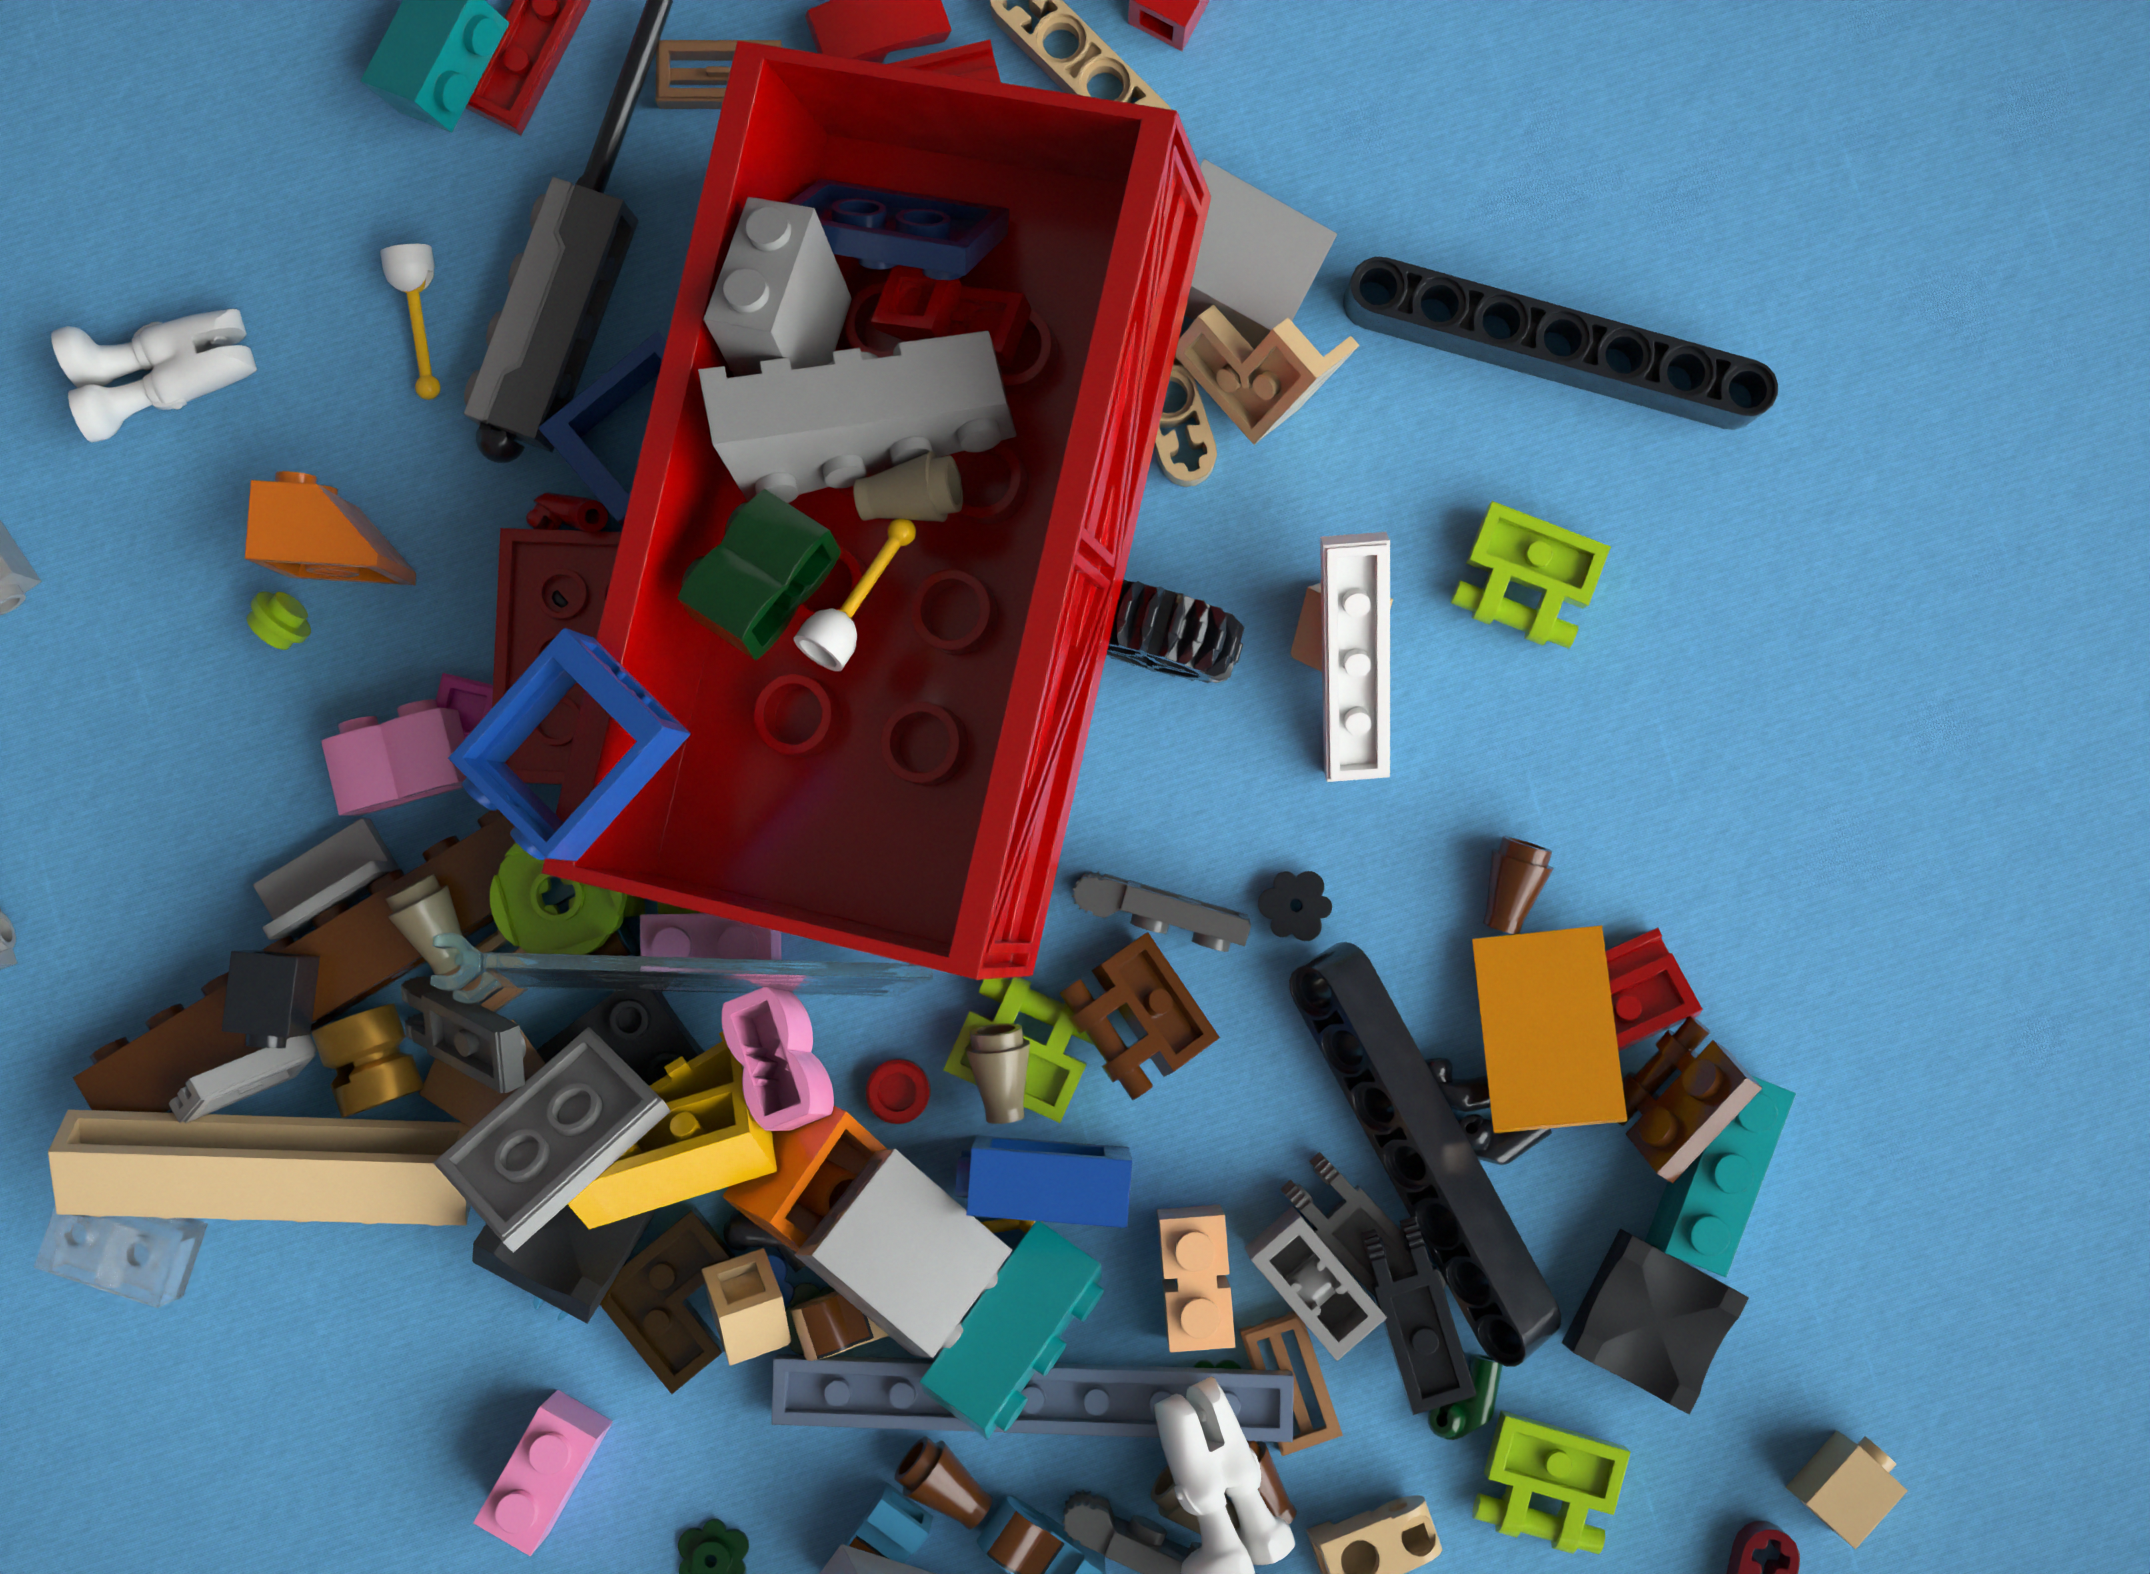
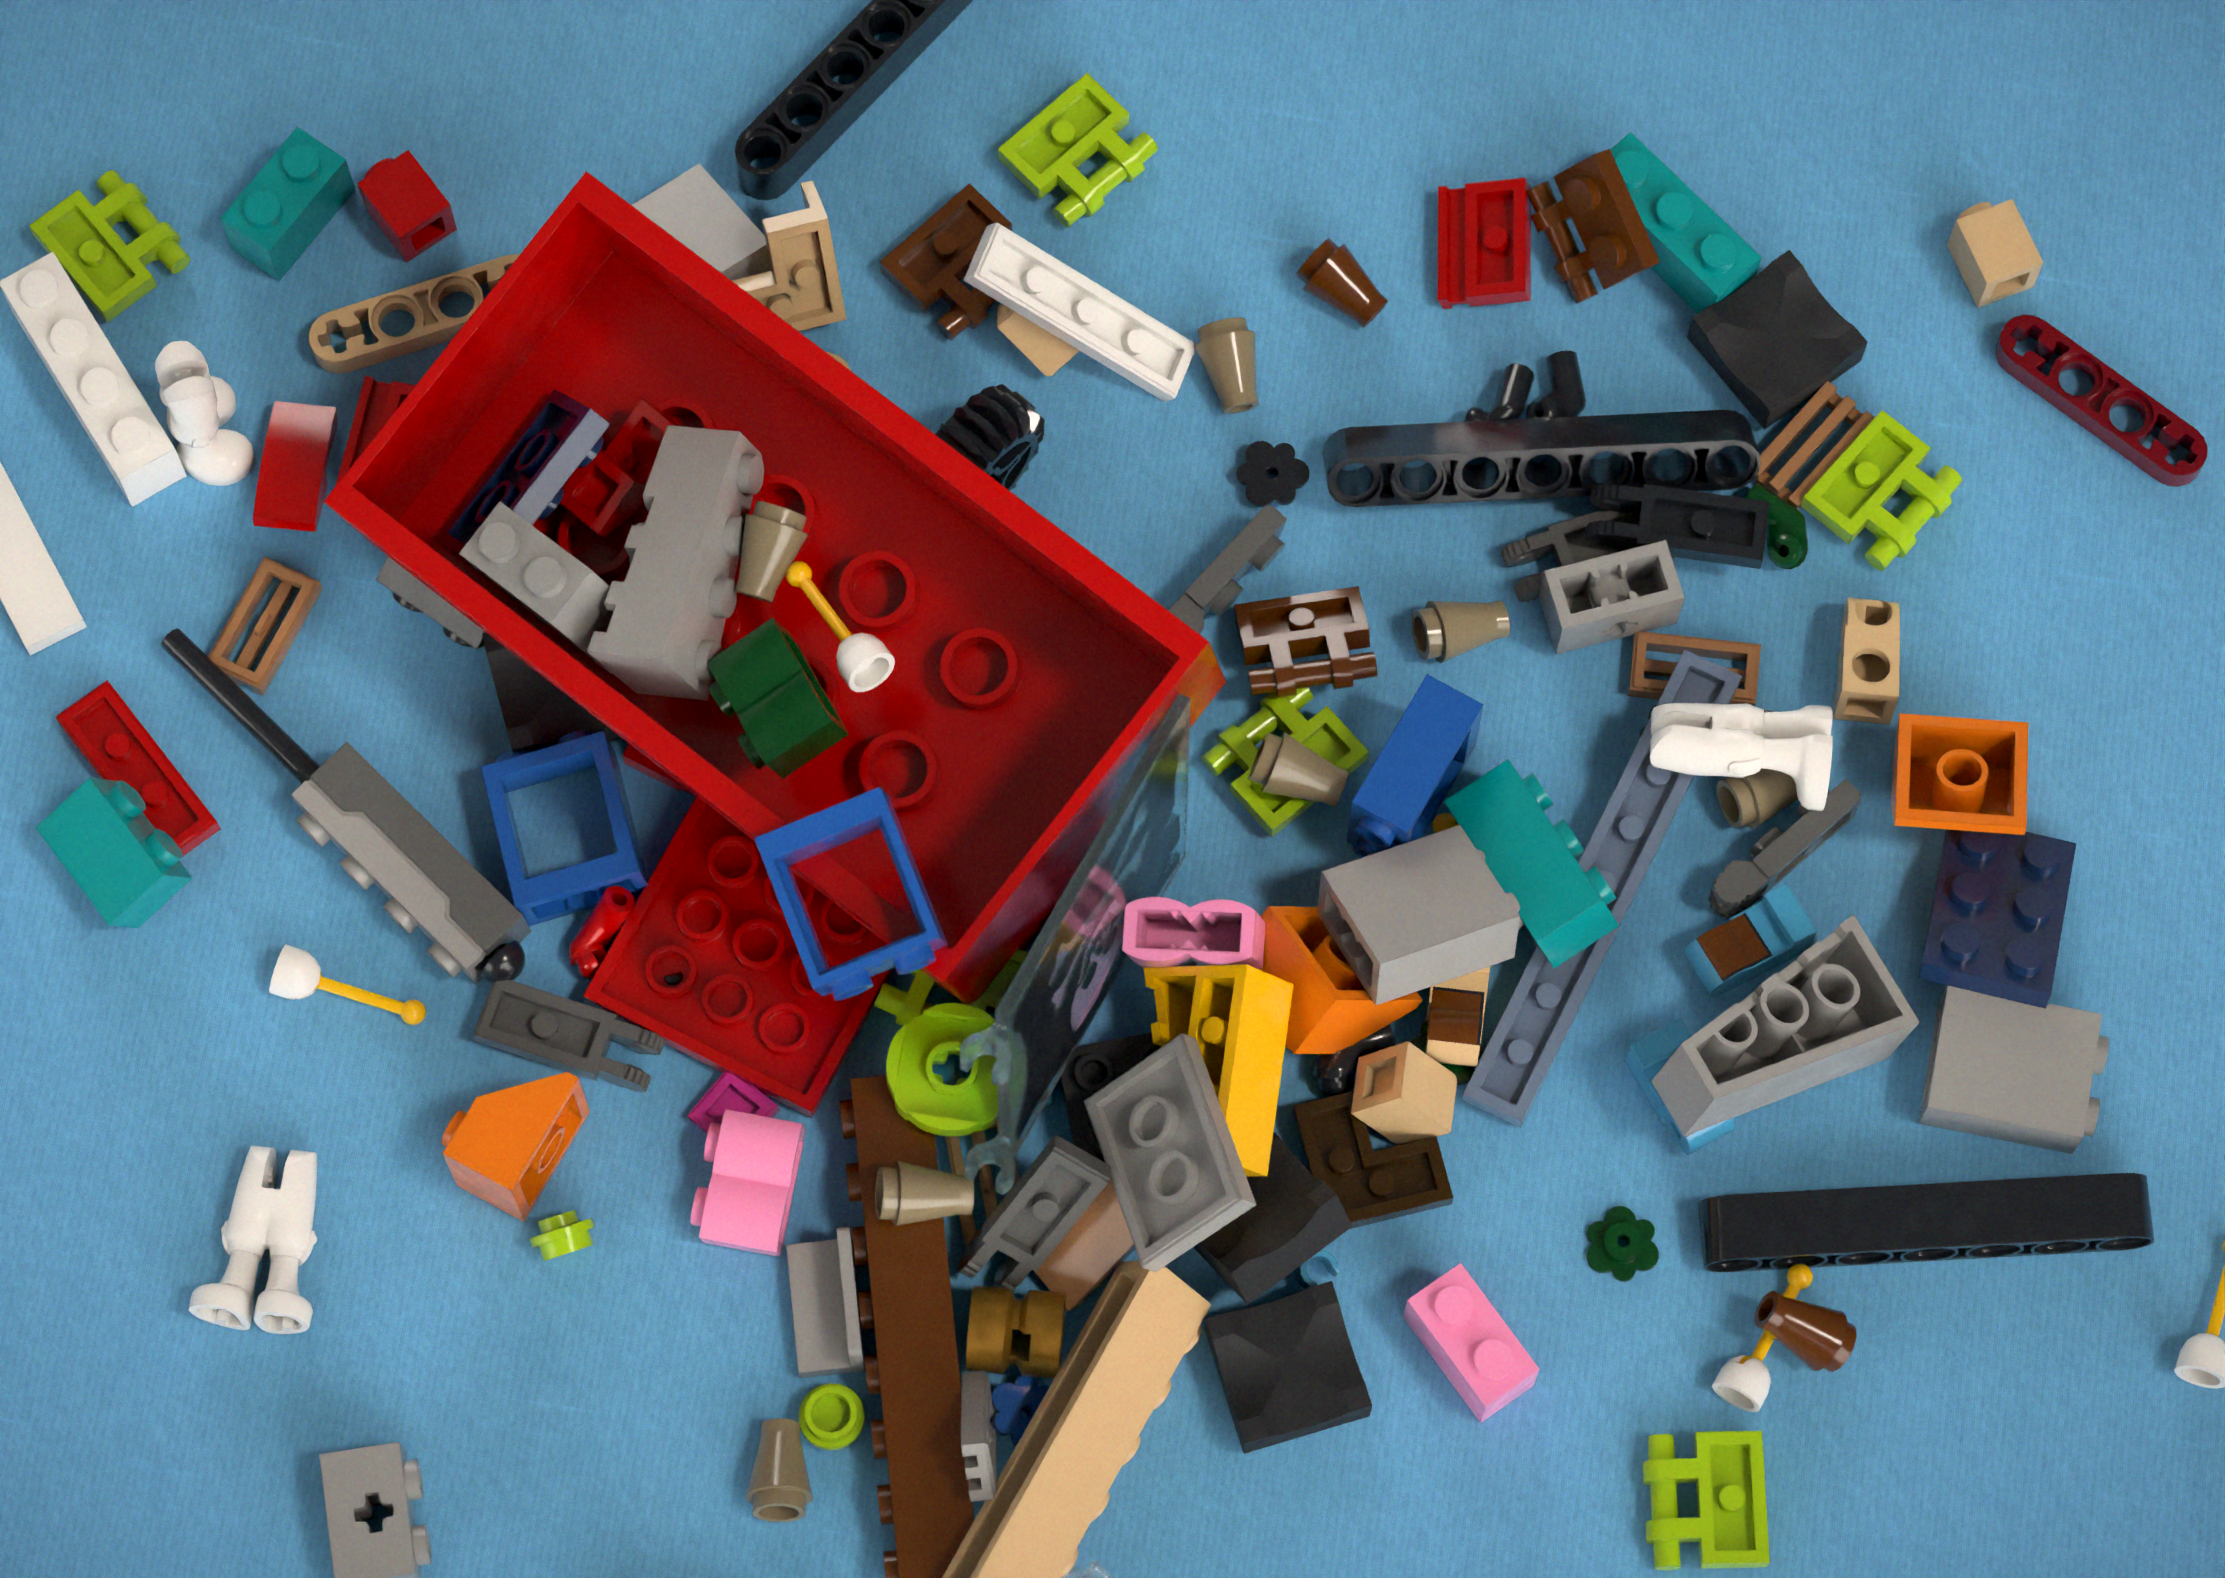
camera: 65 degrees left, 15 degrees down
(155, 912) = (779, 1476): none -> dark tan cone
(228, 928) = (831, 1416): none -> lime plate
(270, 996) = (918, 1361): black brick -> none
(308, 1081) = (1009, 1401): none -> blue plant
(445, 1318) = (1287, 1368): none -> black brick
(461, 526) = (562, 1033): none -> dark grey hinge
(898, 1091) = (1272, 882): red tile -> none
(941, 1482) = (1641, 1003): reddish brown cone -> none
(1197, 1255) = (1589, 698): light nougat piece -> none
(1223, 1147) = (1454, 628): none -> dark tan cone
(1368, 501) = (939, 256): none -> reddish brown plate
(1384, 817) = (1230, 362): none -> dark tan cone
(1548, 1030) = (1482, 308): light orange tile -> none
(1617, 1410) = (1842, 410): none -> medium nougat tile

